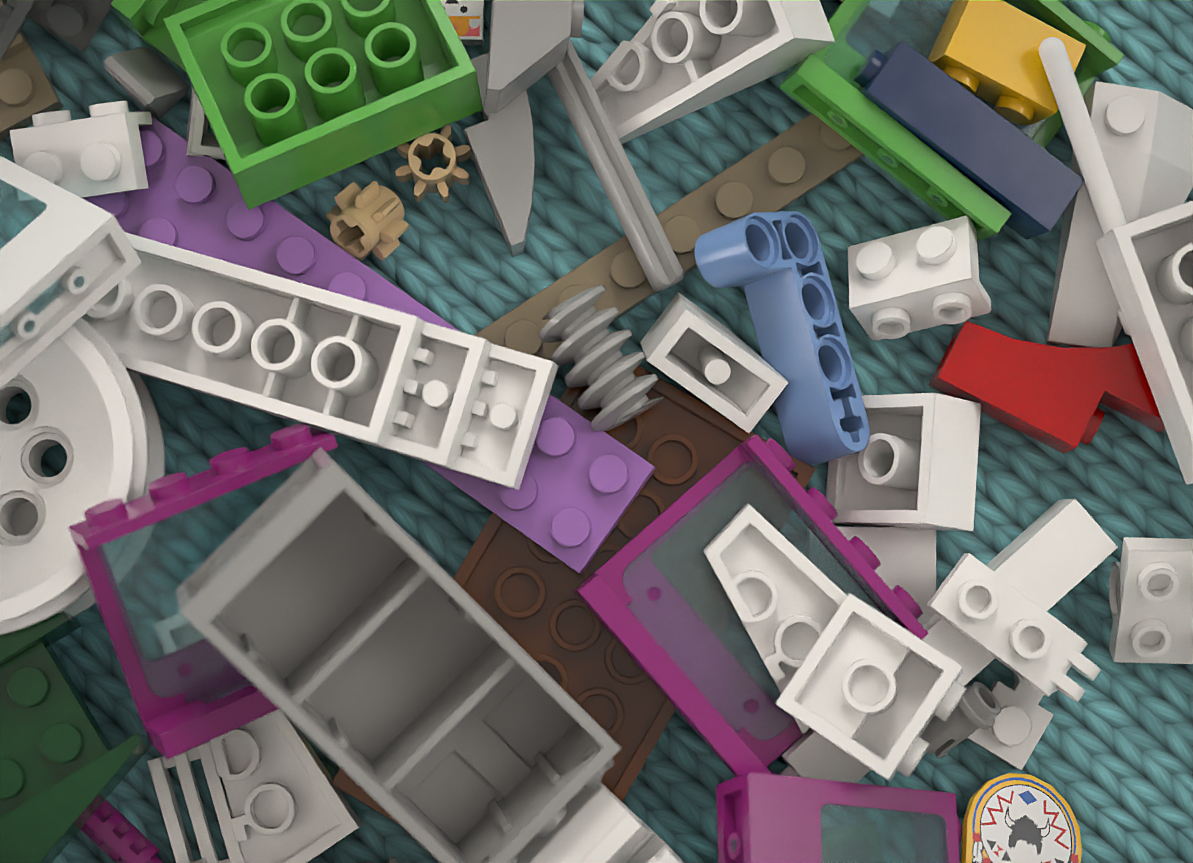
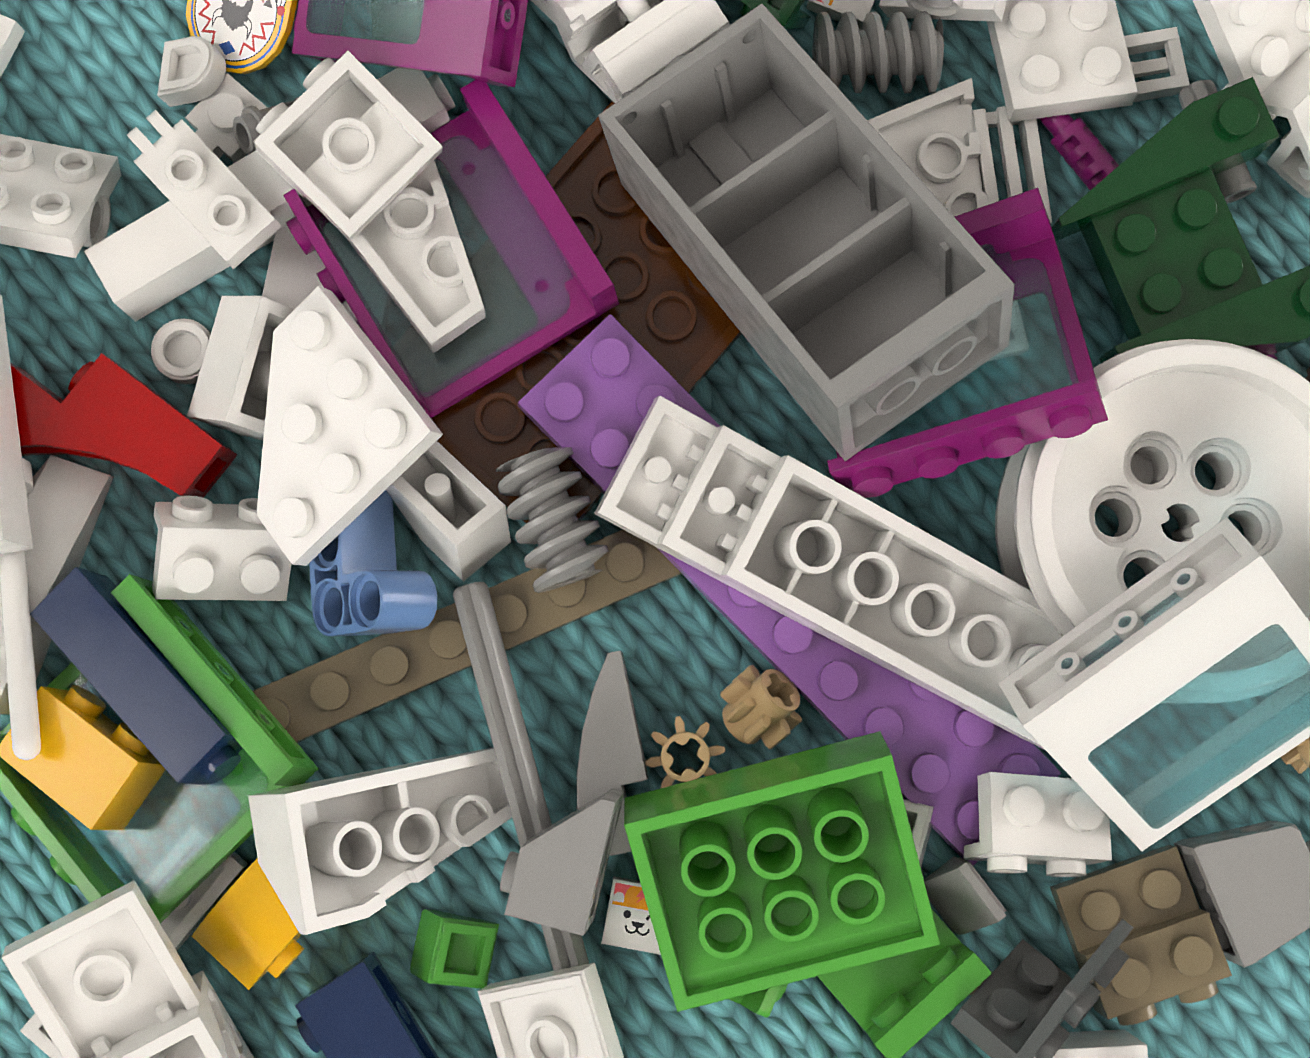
camera: 170 degrees left, 0 degrees up
(829, 406) = (332, 429): none -> white plate
(1004, 476) = (180, 350): none -> white tile
(1059, 765) = (190, 71): none -> white tile

